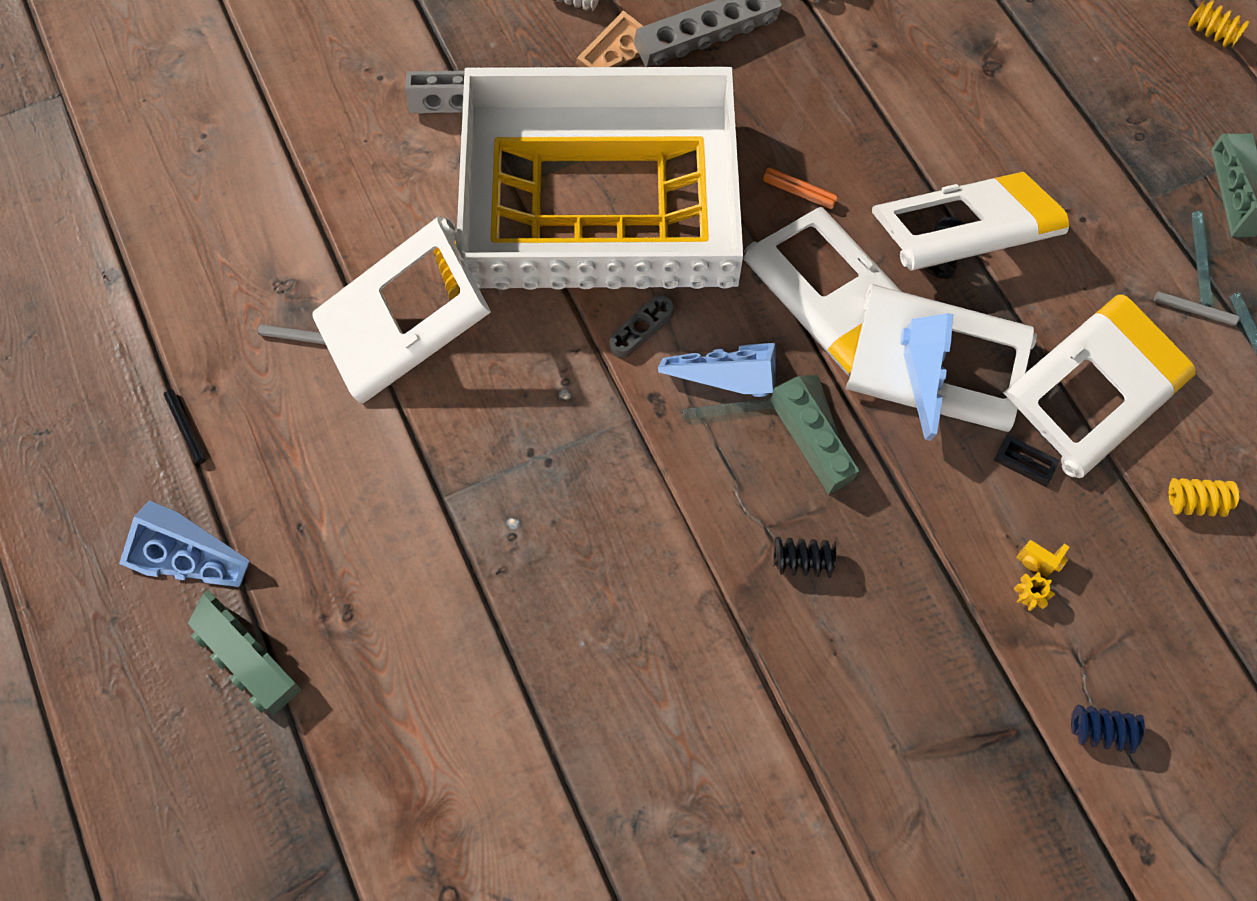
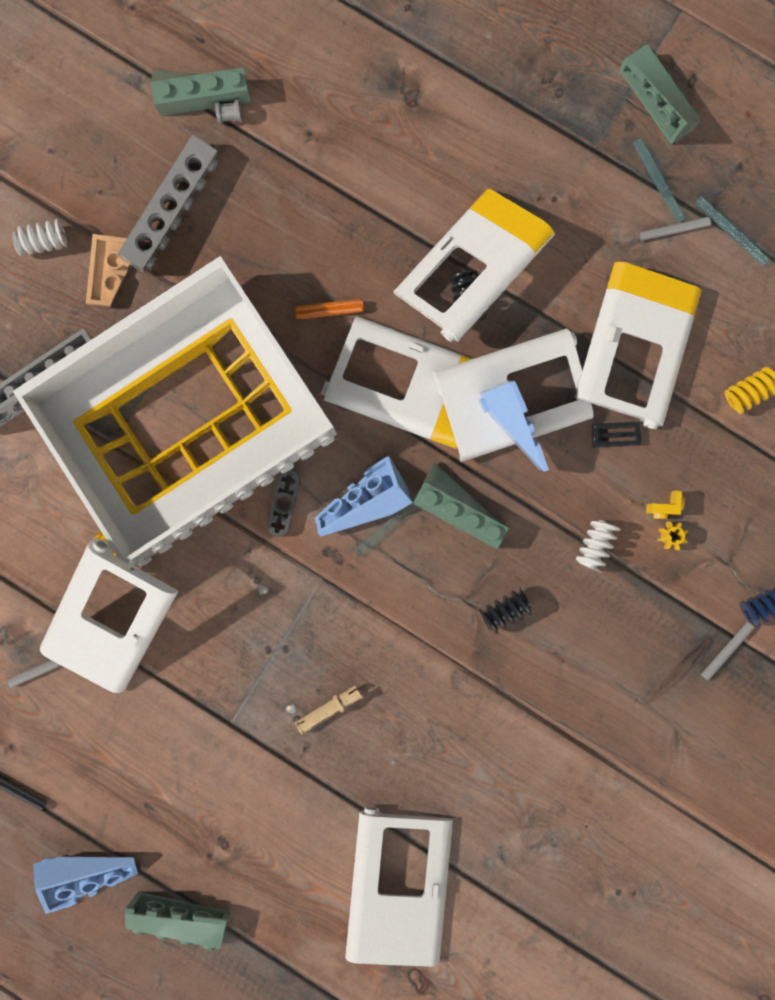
camera: 25 degrees left, 20 degrees up
(468, 815) = (390, 926): none -> white piece
(553, 543) = (337, 704): none -> tan pin
(943, 548) = (597, 544): none -> white piece
(1030, 755) = (727, 651): none -> light grey bar

